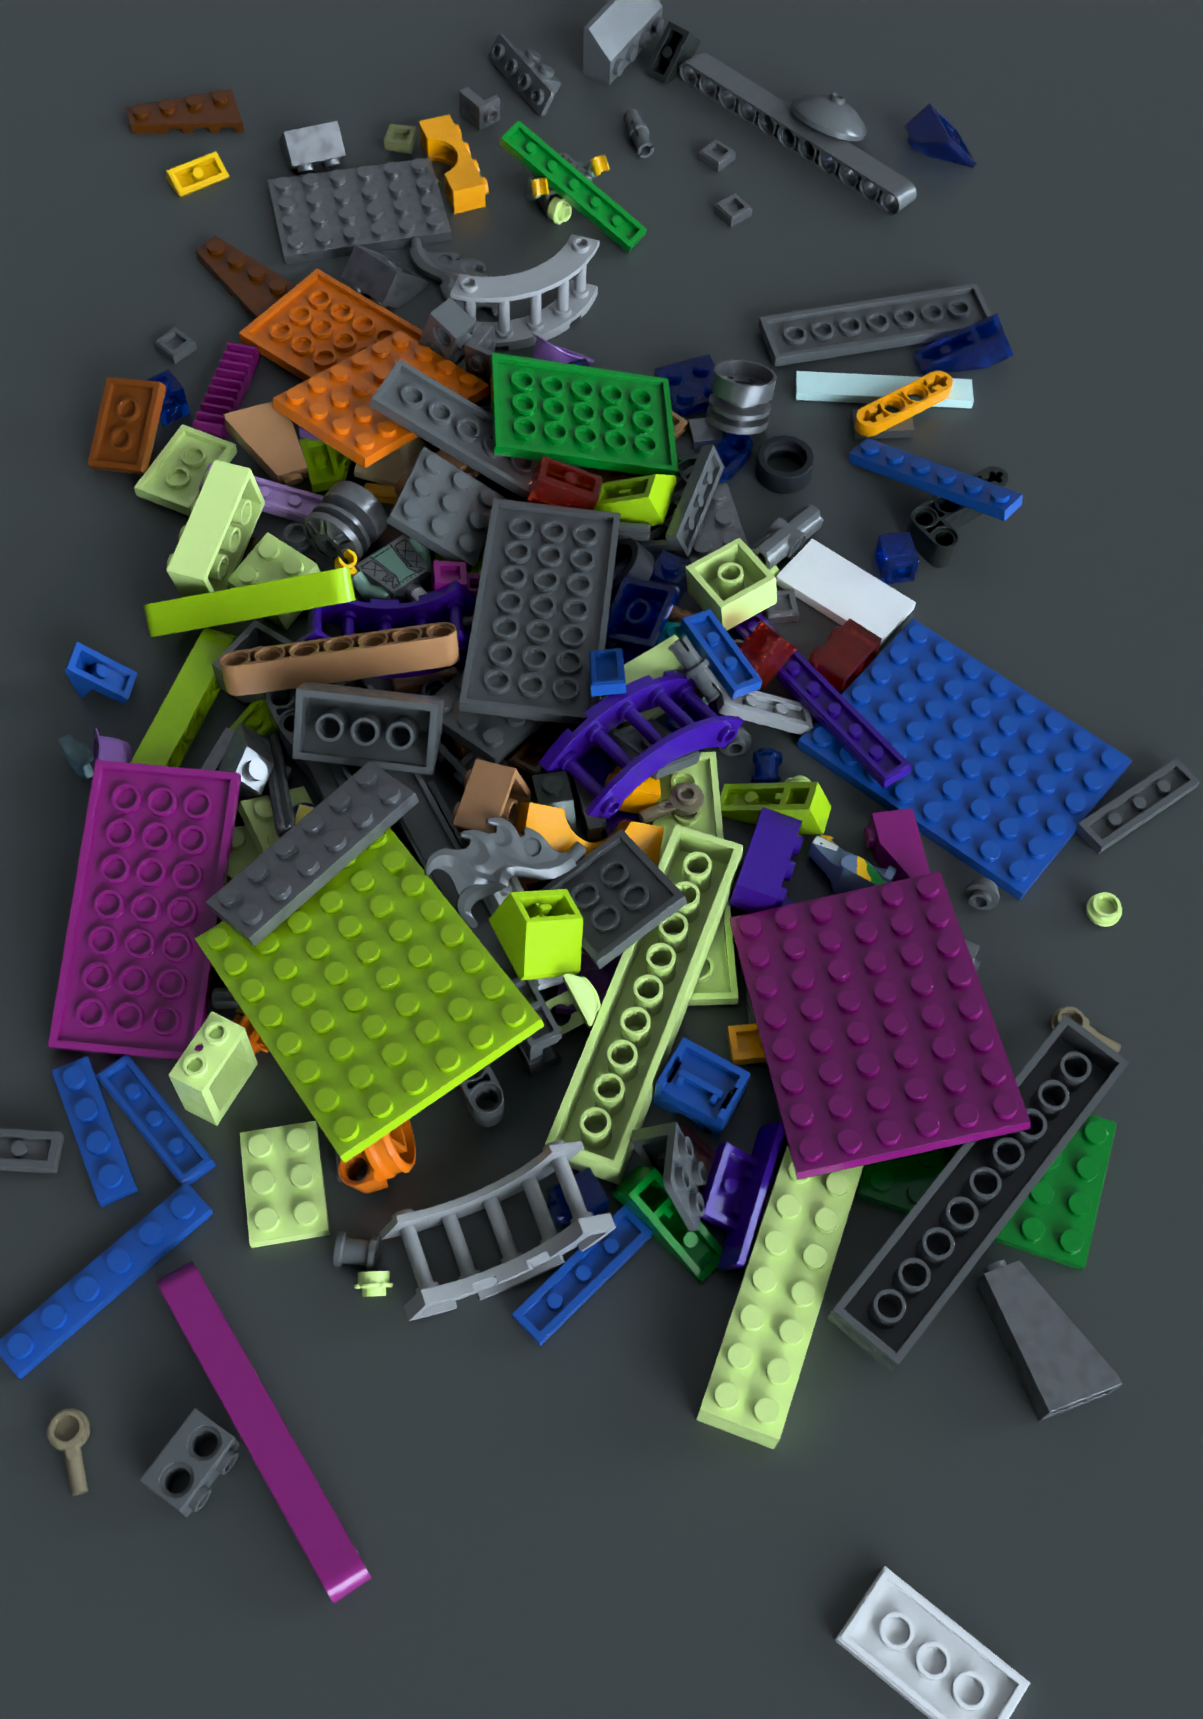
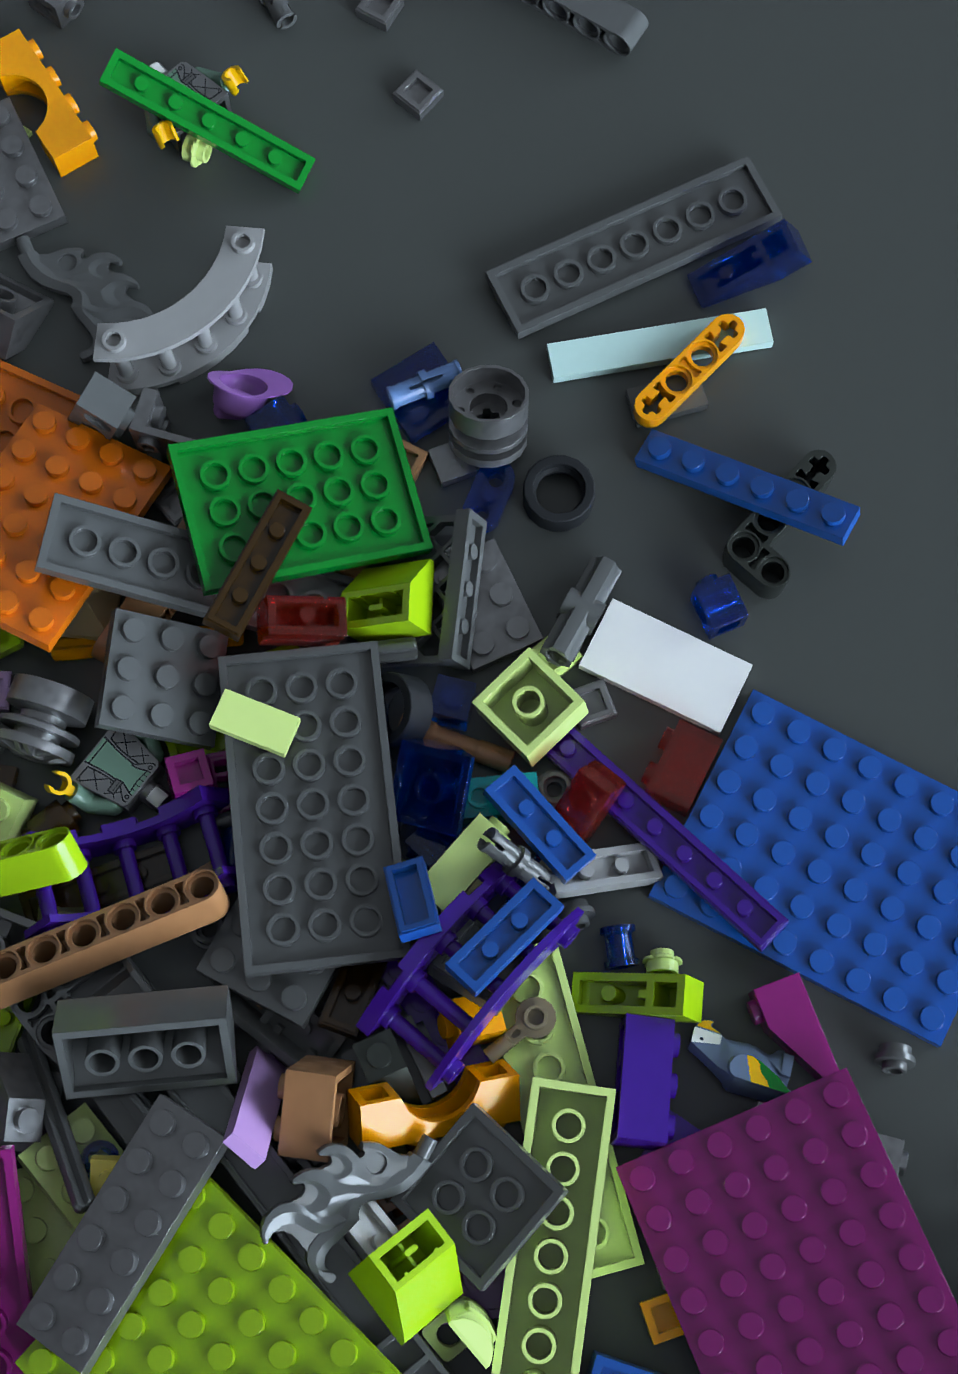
camera: 10 degrees left, 15 degrees up
(439, 794) = (255, 1108): none -> lavender tile
(511, 541) = (254, 723): none -> yellowish green tile
(539, 440) = (257, 565): none -> dark brown tile
(675, 706) = (504, 937): none -> blue plate
(691, 372) = (423, 384): none -> medium blue pin

